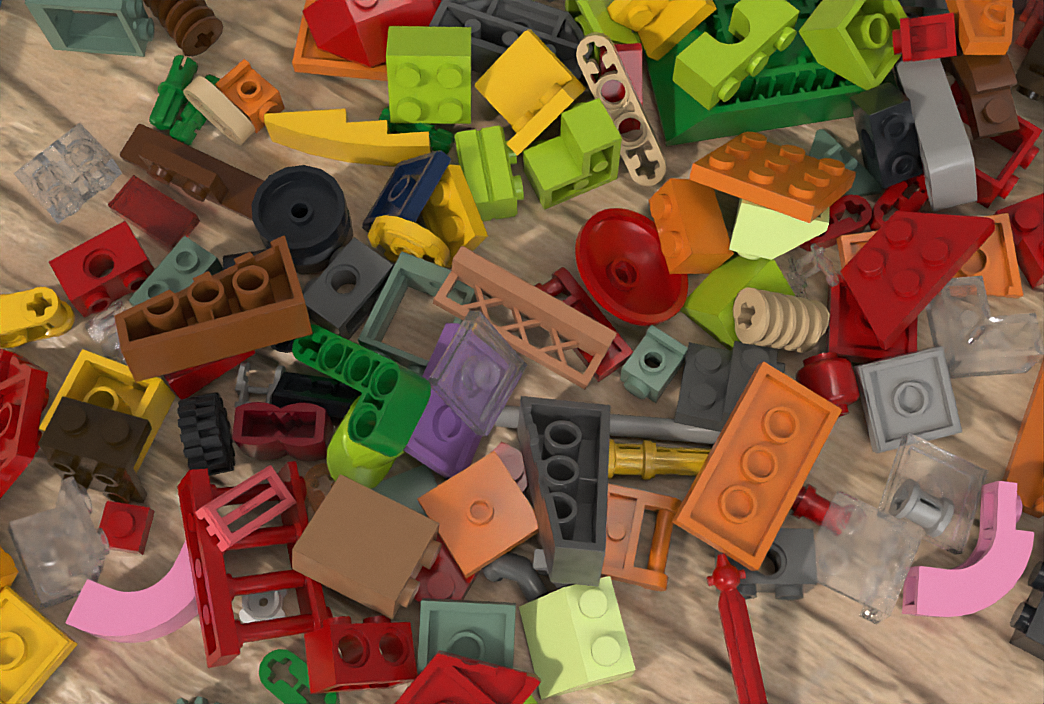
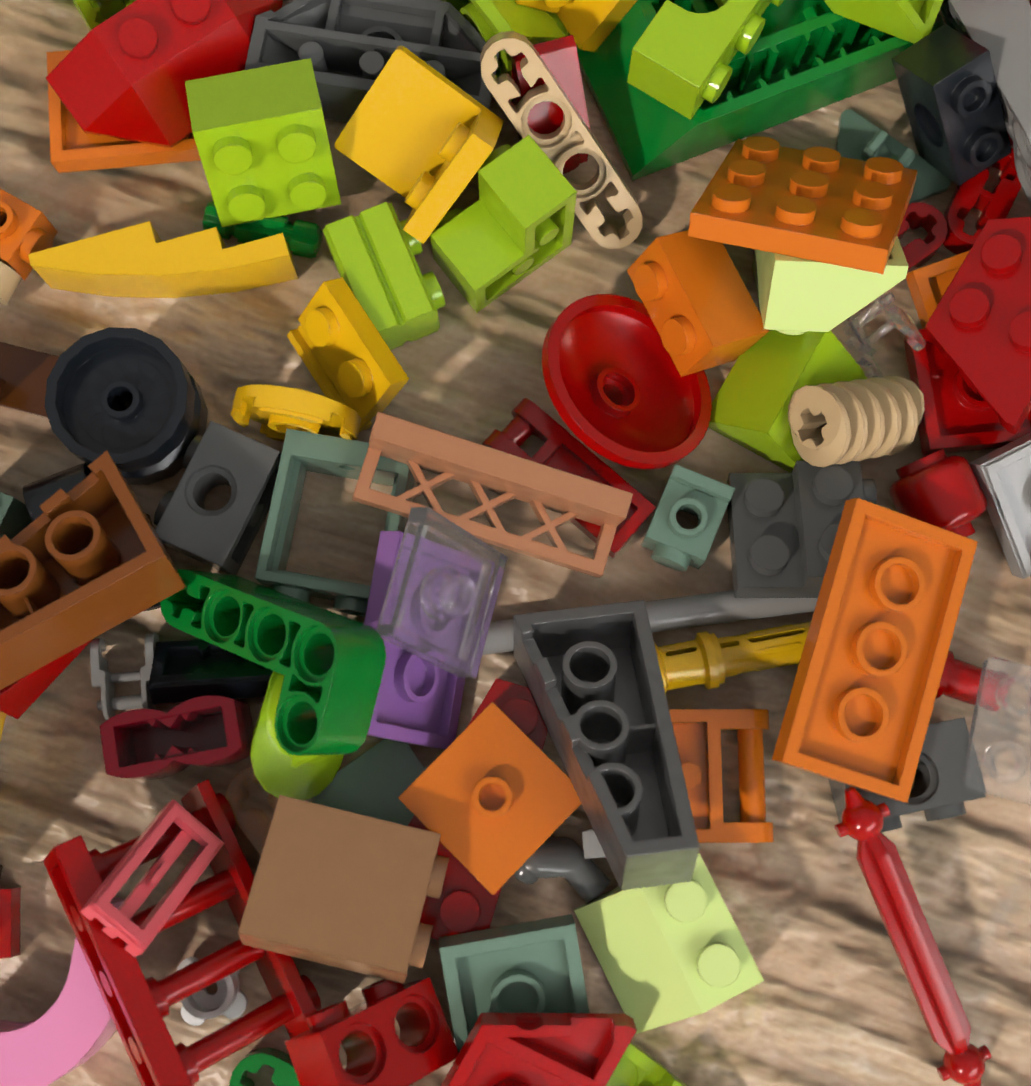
camera: 15 degrees left, 10 degrees up
(206, 433) = (65, 770): black tyre -> none
(409, 187) = (274, 330): dark blue plate -> none

